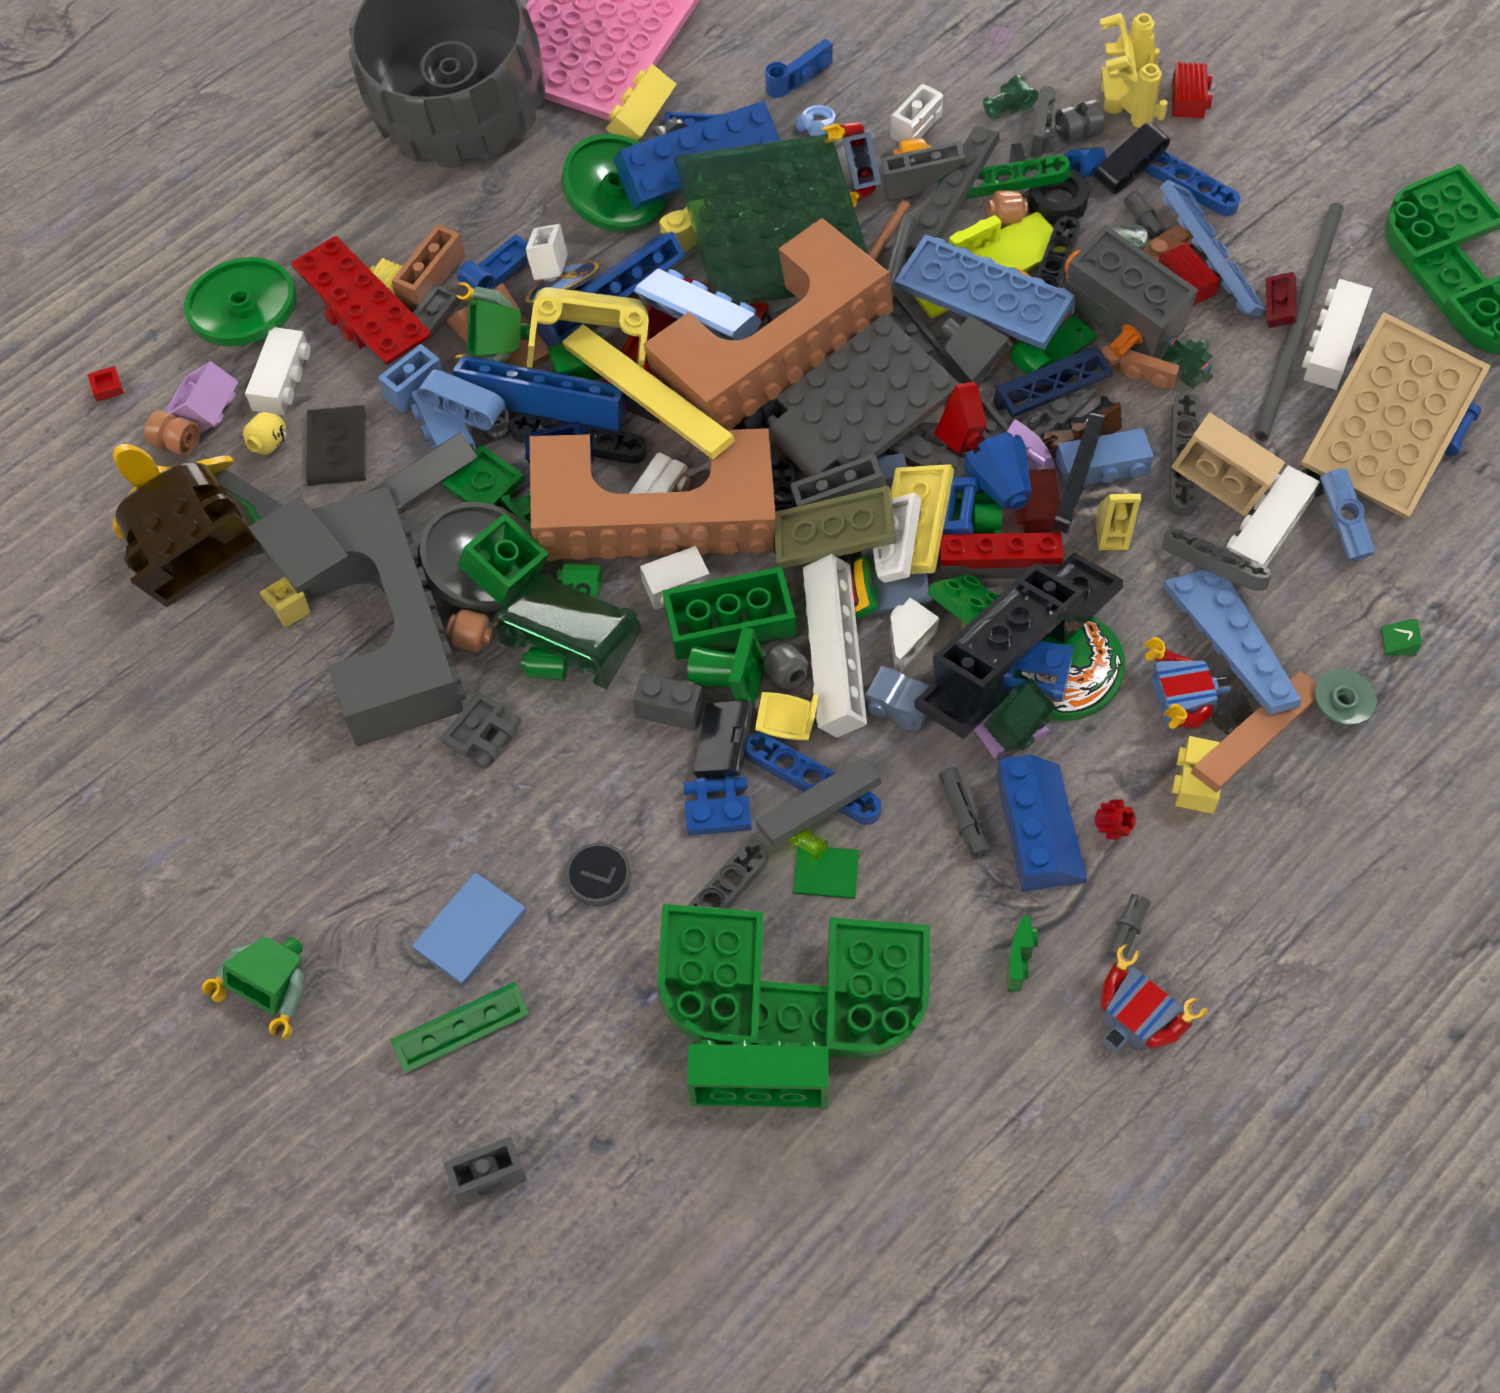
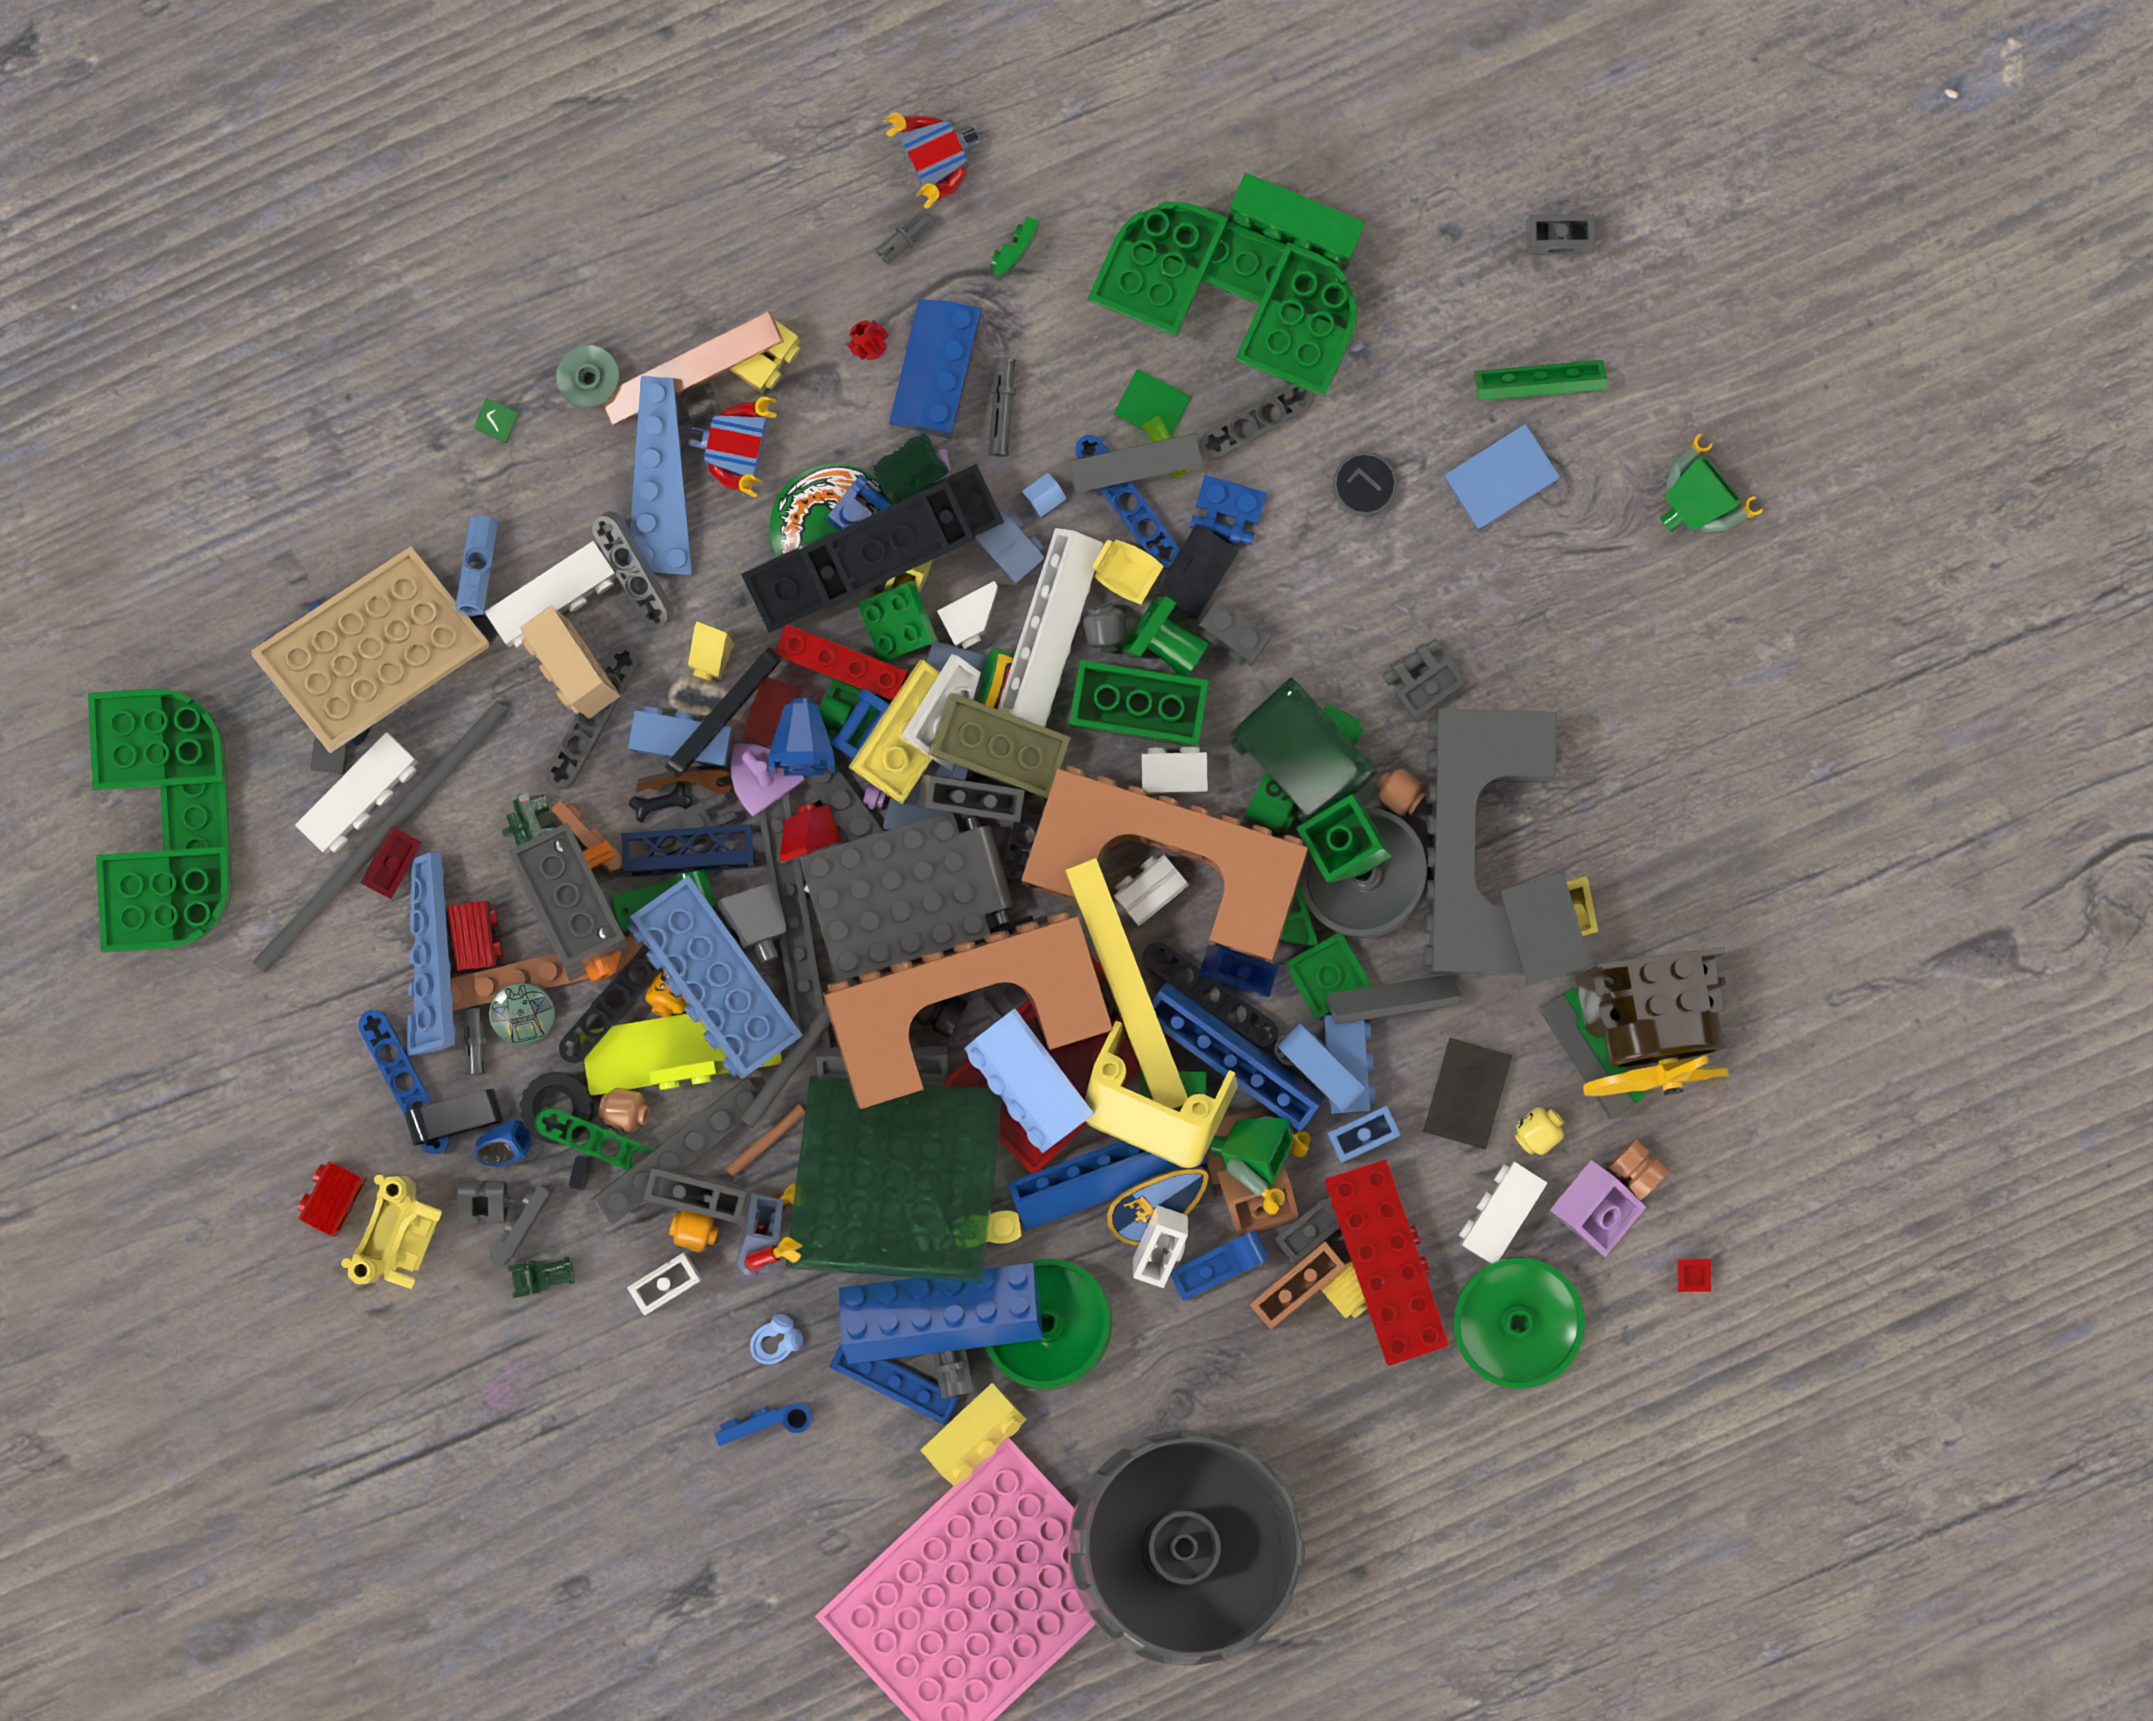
camera: 160 degrees left, 25 degrees up
(891, 756) = (1044, 494): none -> light blue slope

